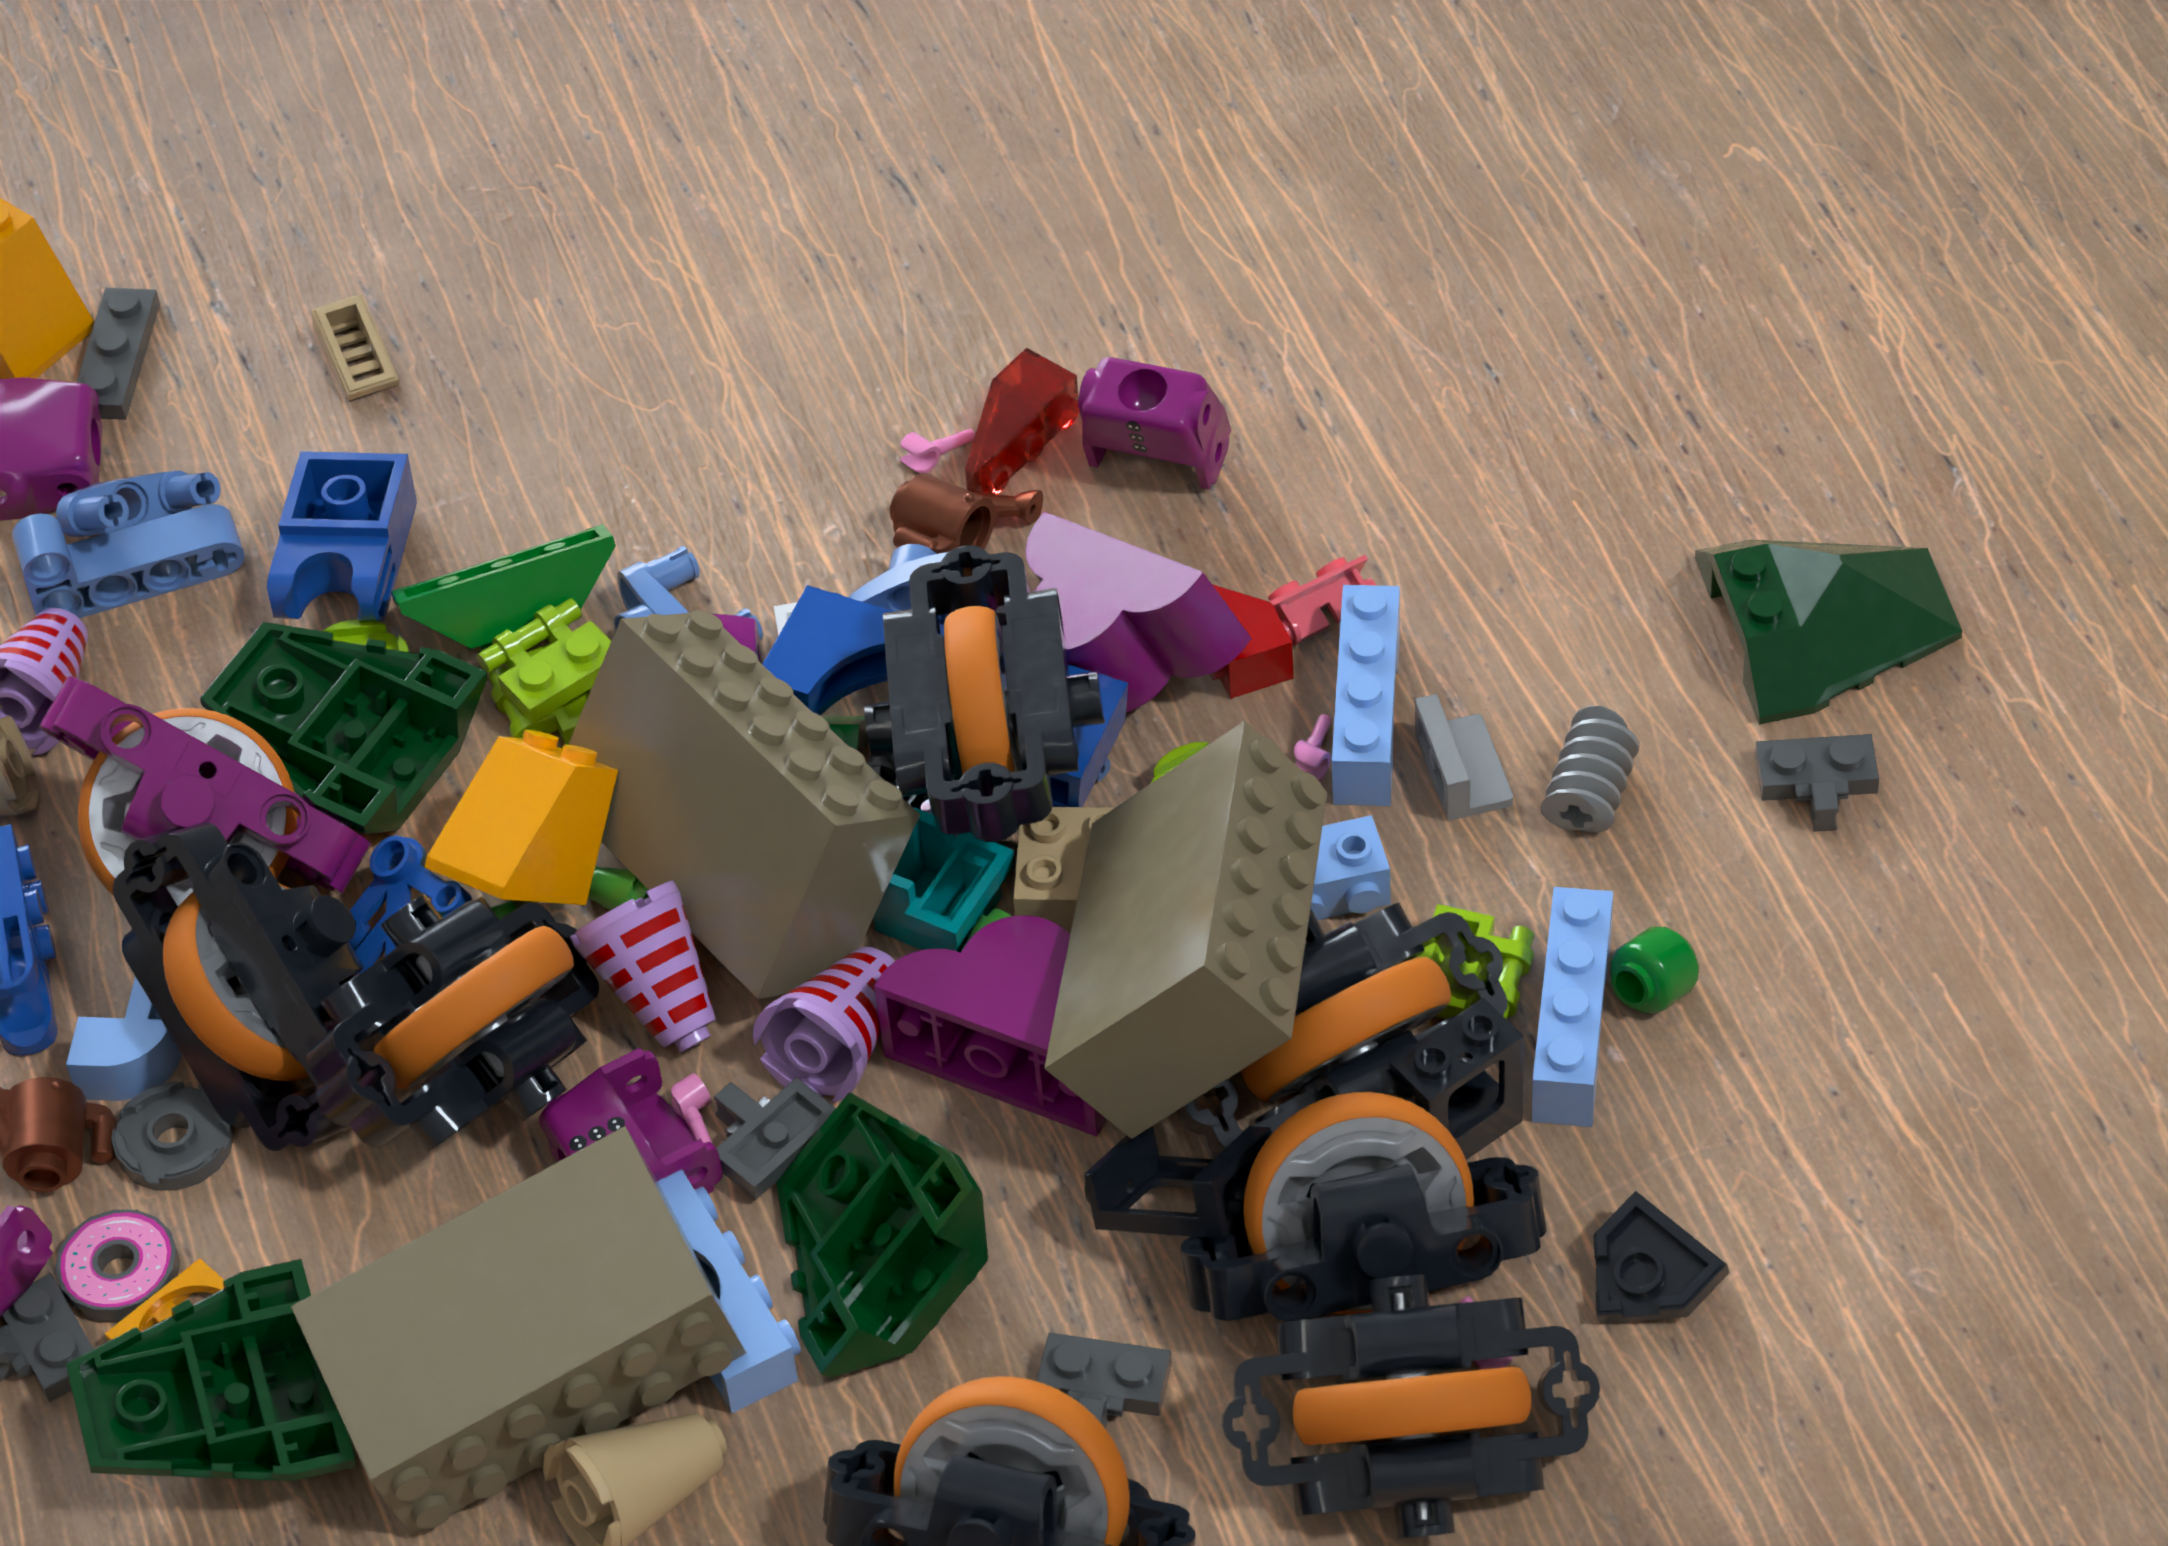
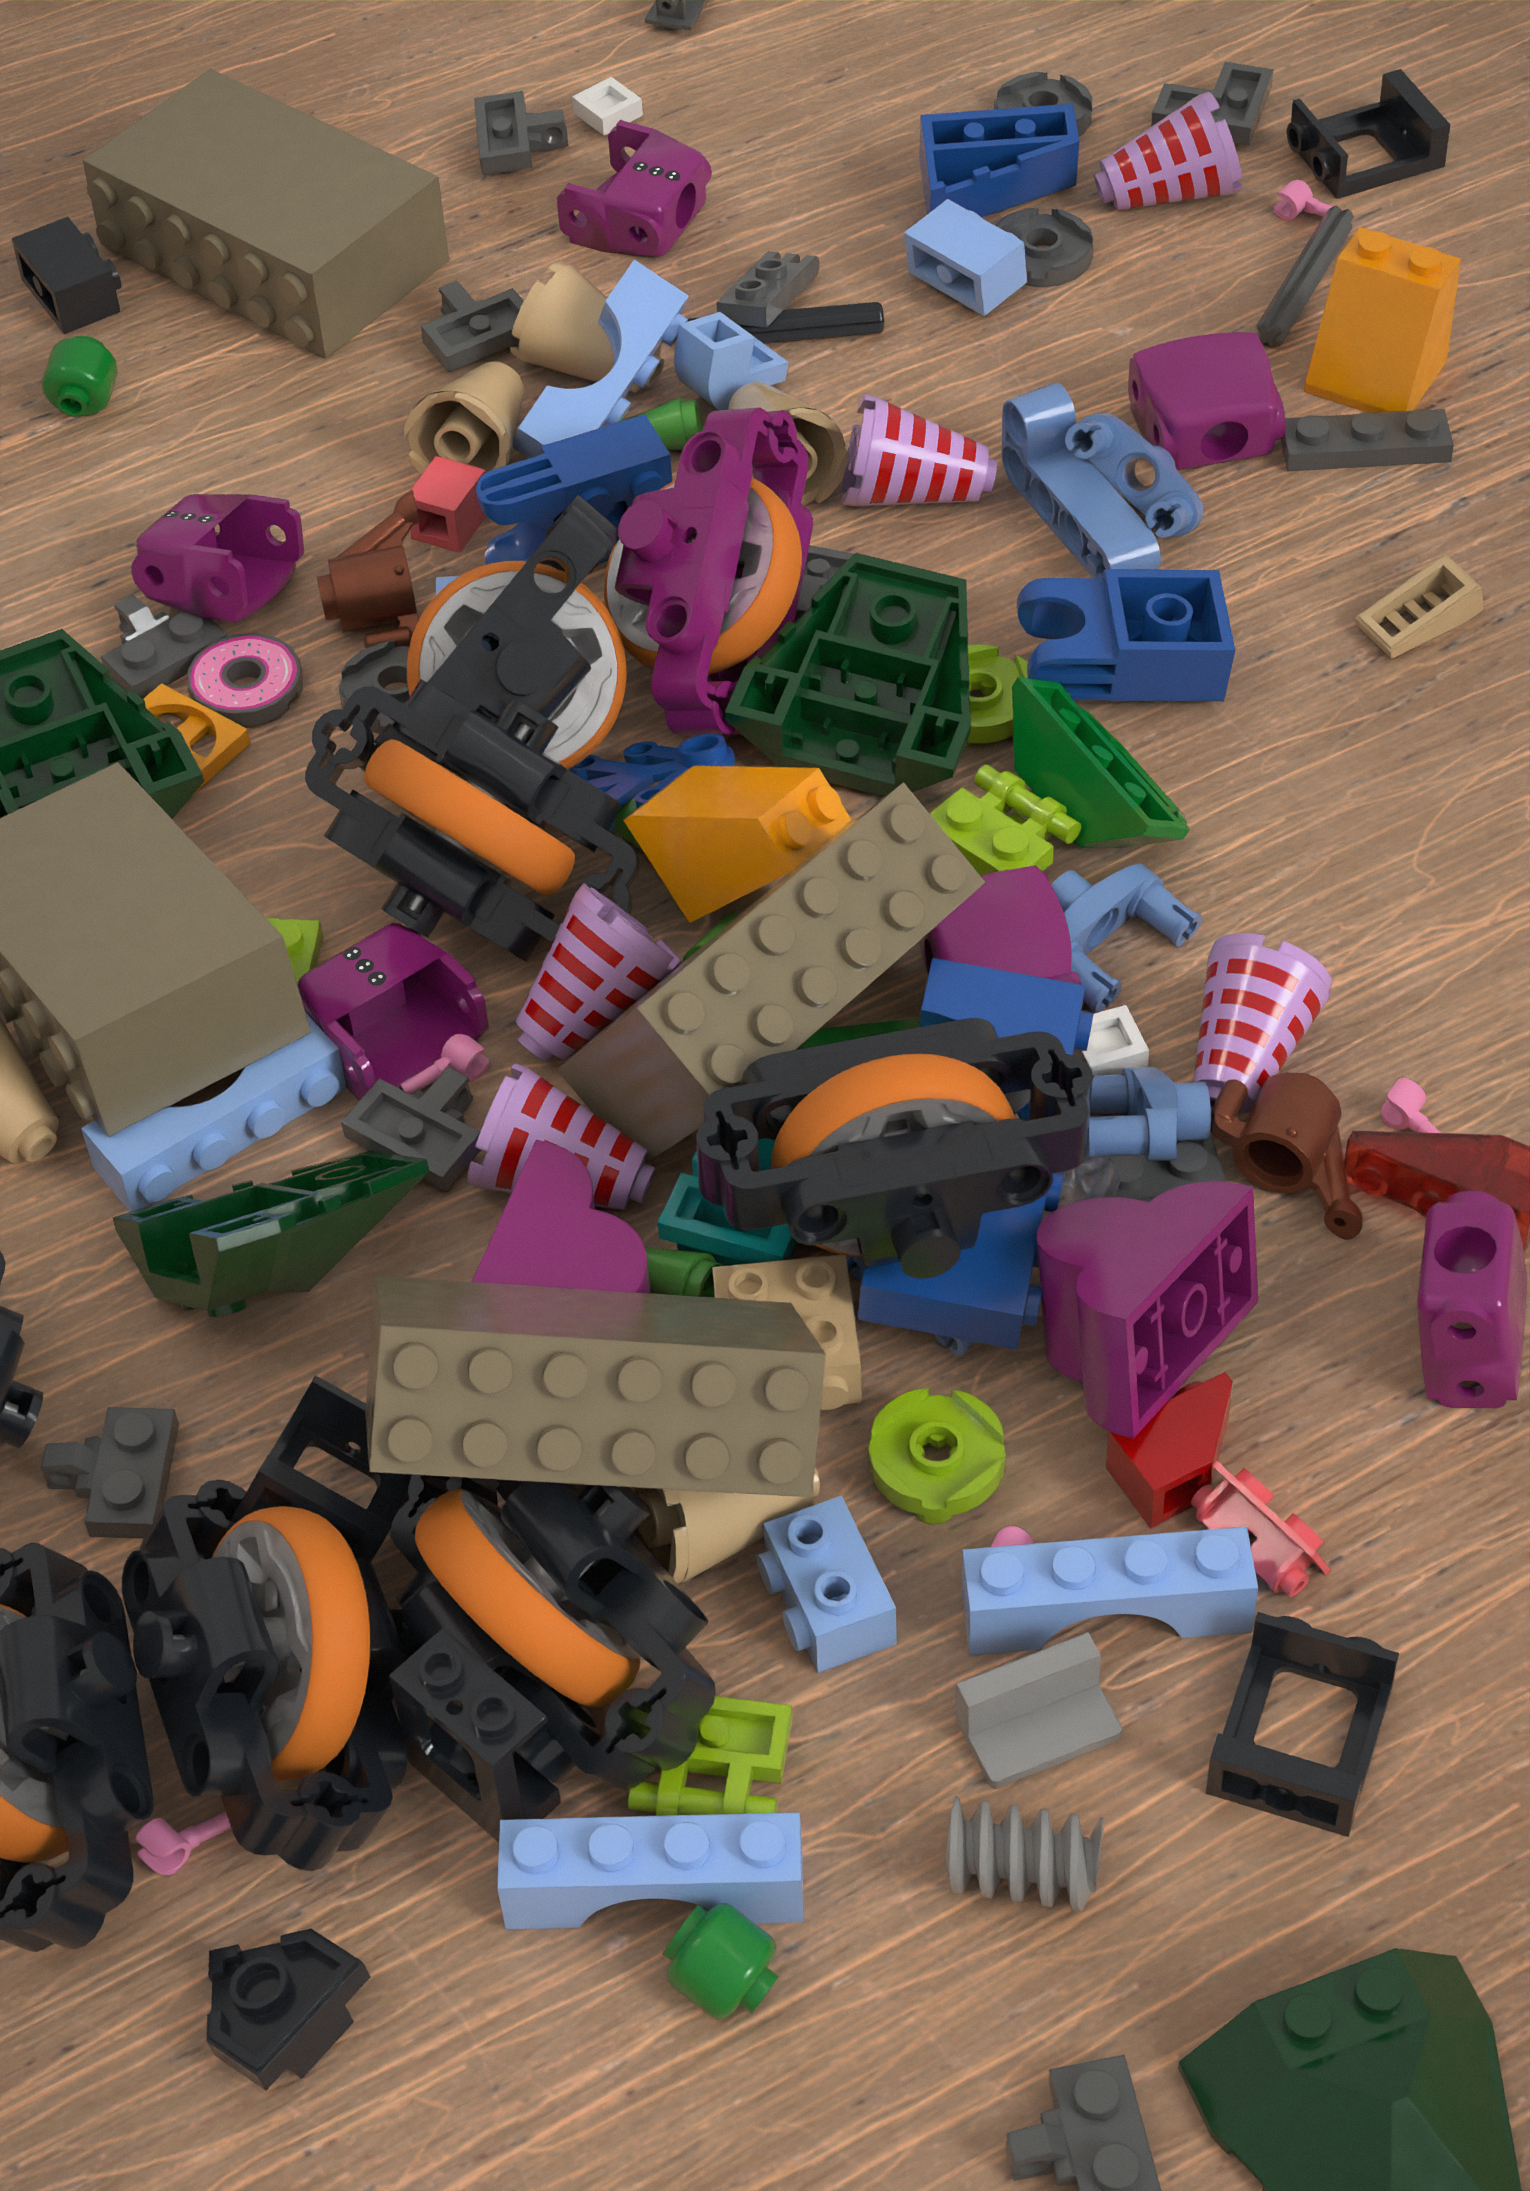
camera: 80 degrees right, 0 degrees up
(820, 519) = (1255, 1011): none -> lavender cone
(1552, 607) = (1283, 1782): none -> black window

